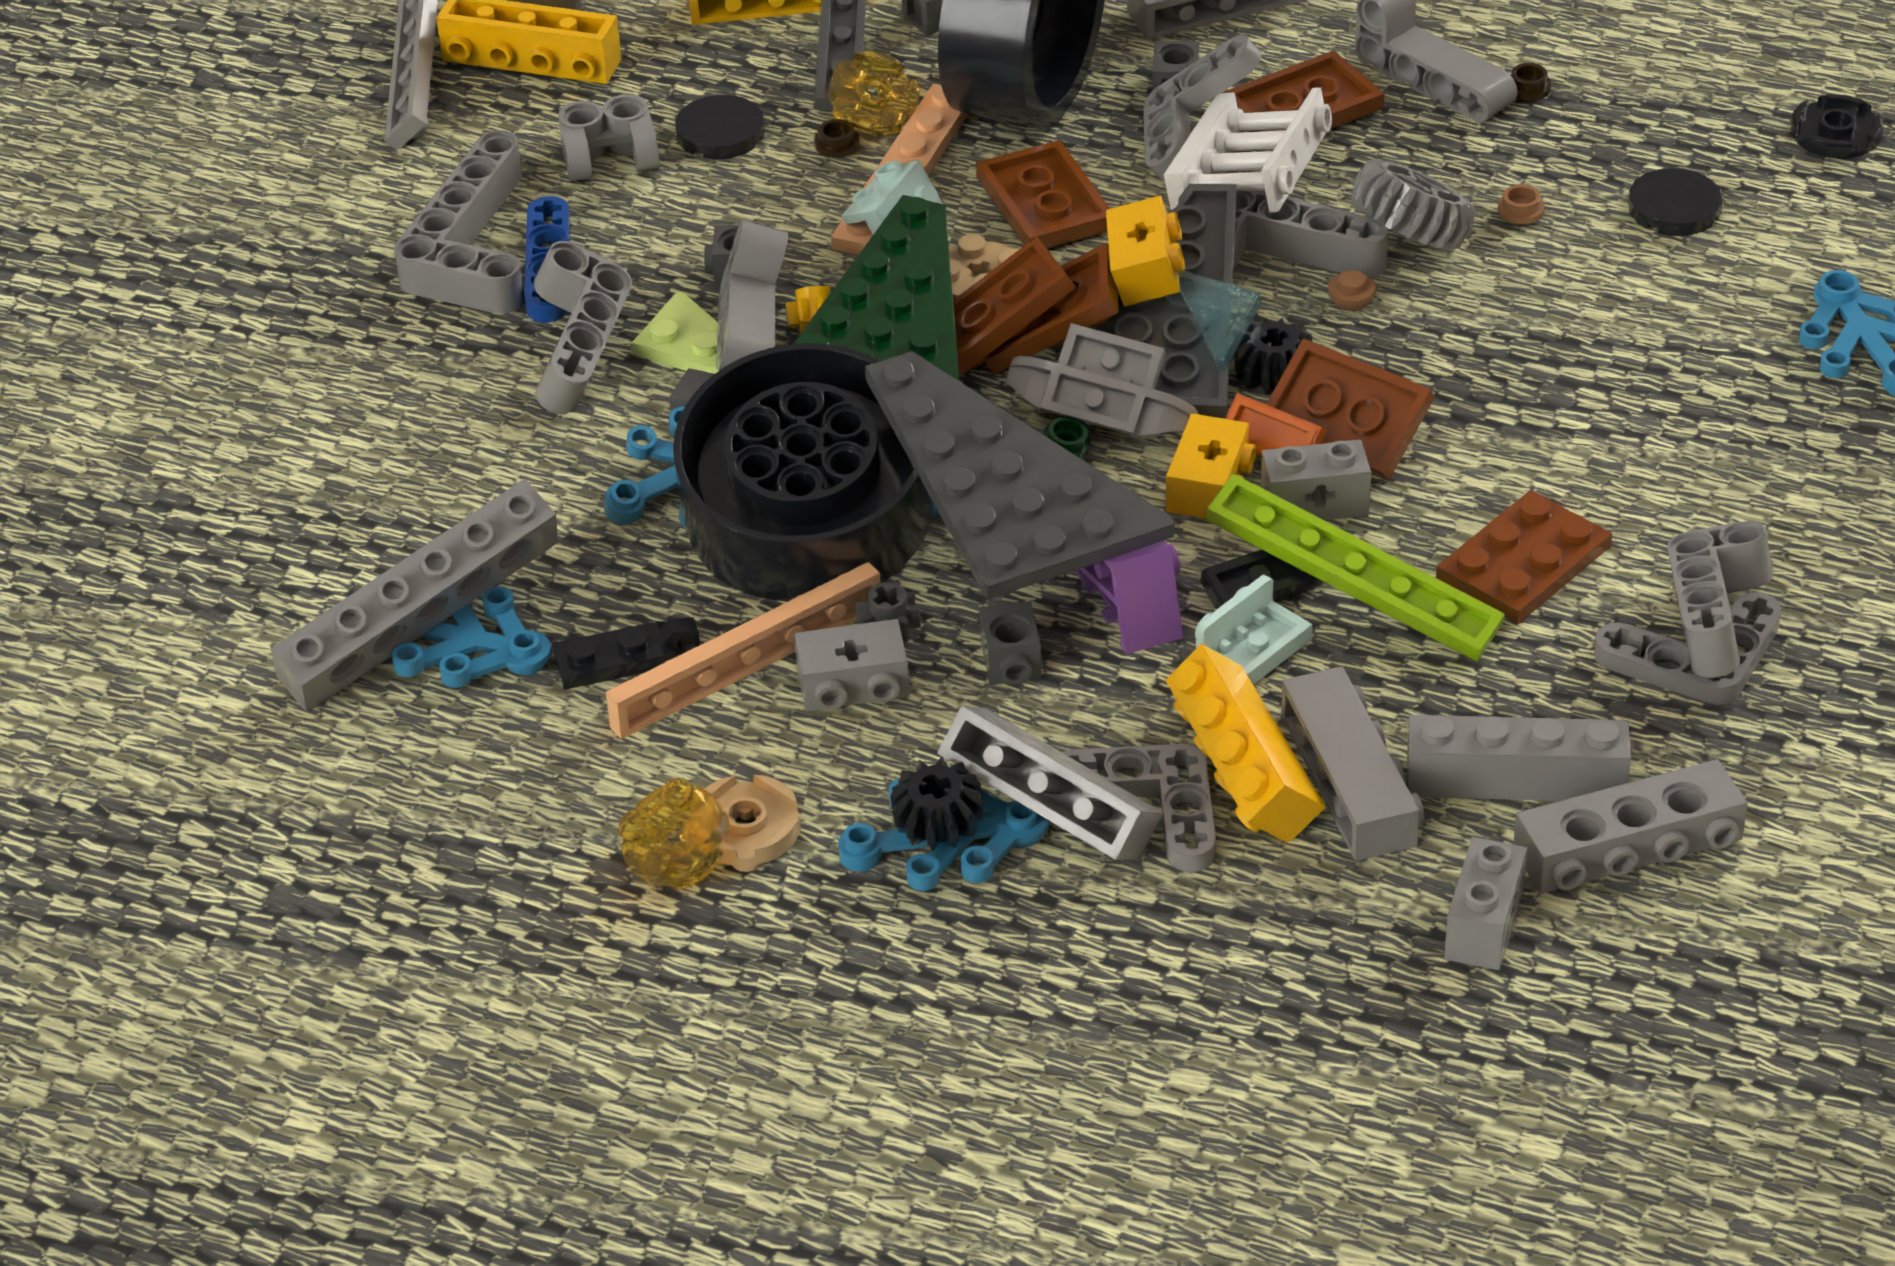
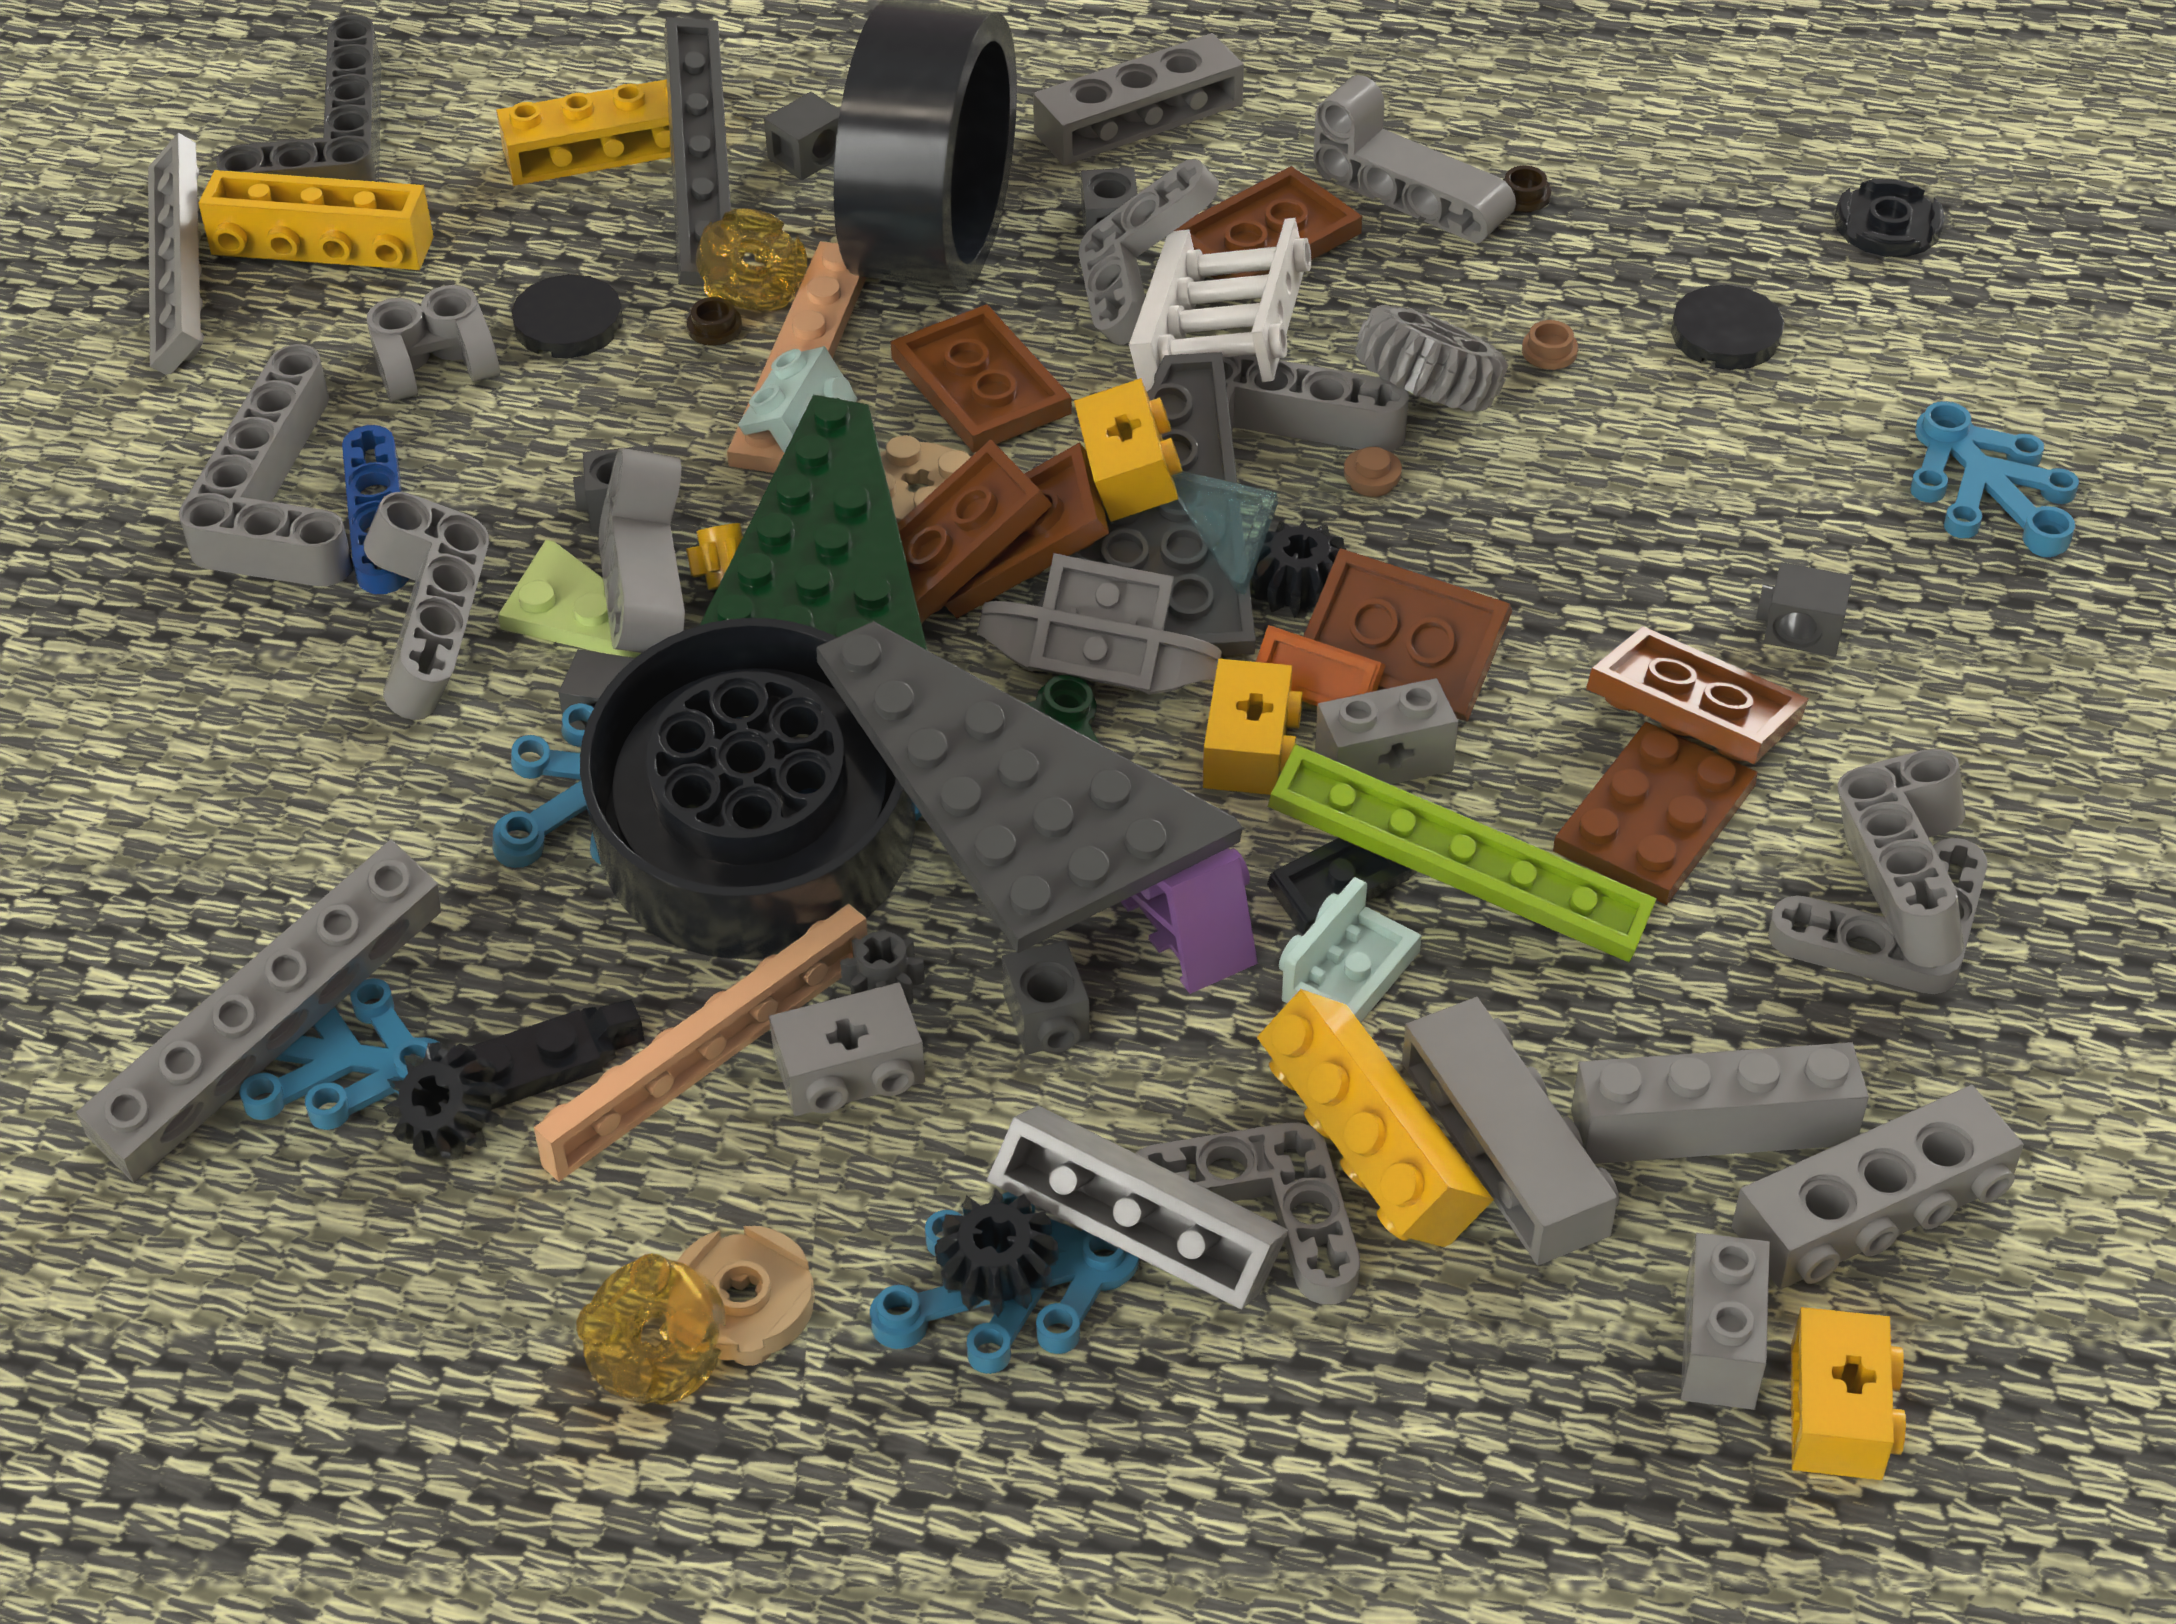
camera: 10 degrees left, 5 degrees up
(543, 671) = (467, 1105): none -> black gear
(1565, 960) = (1845, 1394): none -> yellow brick
(1574, 472) = (1697, 695): none -> dark orange plate
(1681, 417) = (1805, 609): none -> dark grey brick

